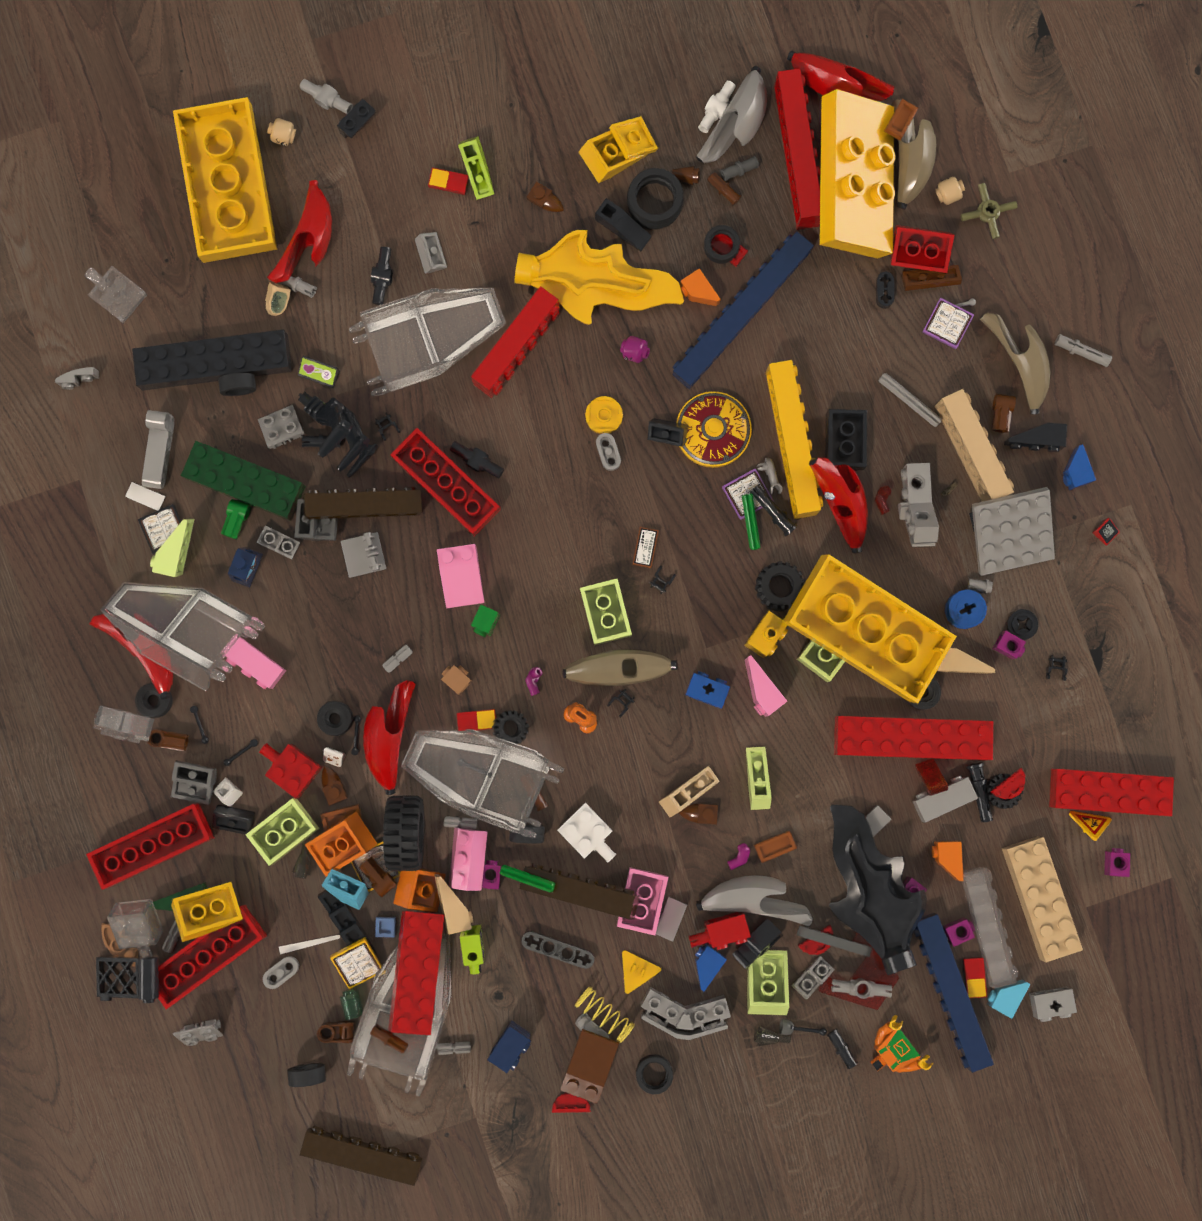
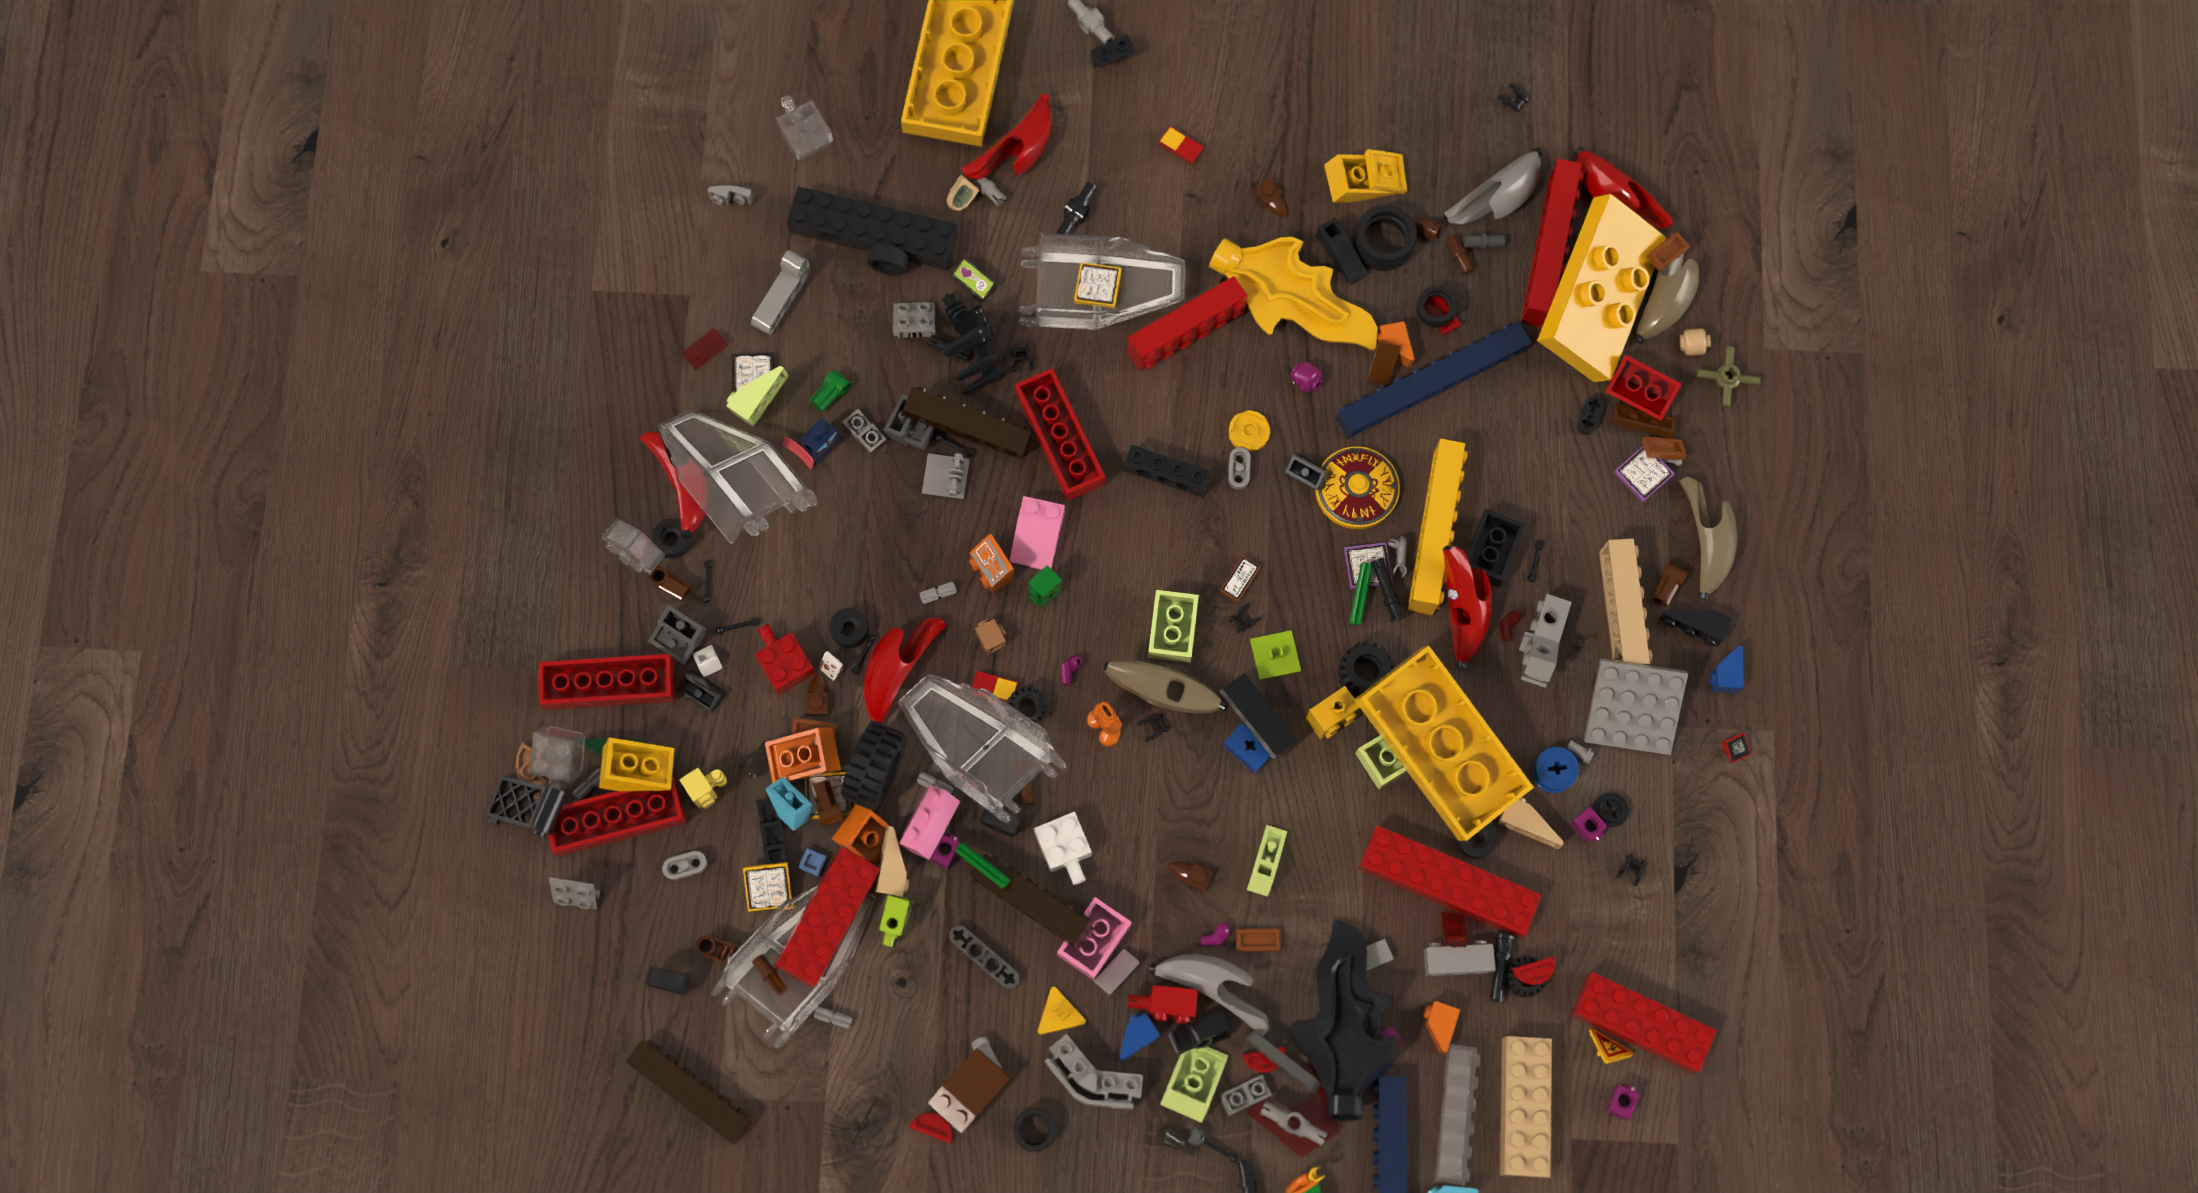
camera: 20 degrees right, 10 degrees down
(112, 523) = (704, 349): none -> clear red plate
(145, 496) = (748, 335): white sticker -> none
(221, 579) = (798, 450): none -> coral sticker
(243, 480) = (854, 356): dark green brick -> none
(255, 664) = (790, 541): bright pink brick -> none
(267, 905) = (701, 787): none -> light yellow brick
(281, 132) = (1032, 38): tan head -> none
(282, 831) = (747, 719): yellowish green brick -> none
(292, 947) = (722, 848): white sticker -> none
(351, 1004) = (744, 926): clear green brick -> none
(375, 526) = (969, 453): none -> black hinge
(426, 337) = (1097, 285): none -> tile
(430, 252) = (1135, 207): light grey slope -> none
(433, 618) = (991, 564): none -> orange slope
(476, 167) = (1214, 142): lime slope -> none
(476, 459) = (1100, 425): black pin -> none
(509, 1046) = (892, 1036): dark blue brick -> none
(548, 478) = (1167, 471): none -> black brick
(626, 1030) = (993, 1016): light yellow piece -> none
(689, 791) = (1187, 845): tan slope -> none
(695, 311) = (1384, 362): none -> reddish brown slope
(699, 600) = (1275, 655): none -> lime piece
(707, 663) = (1259, 716): none -> black slope
(716, 106) = (1482, 172): white pin -> none
(726, 25) = (1509, 102): none -> black piece
(764, 692) = (1308, 775): bright pink slope -> none
(883, 420) = (1539, 545): none -> black hinge
(910, 400) = (1575, 535): light grey axle -> none
(950, 931) = (1413, 1111): magenta brick -> none
(957, 295) = (1664, 448): none -> dark orange tile
(975, 977) = (1421, 1165): red tile -> none
(1076, 347) = (1782, 557): light grey pin -> none

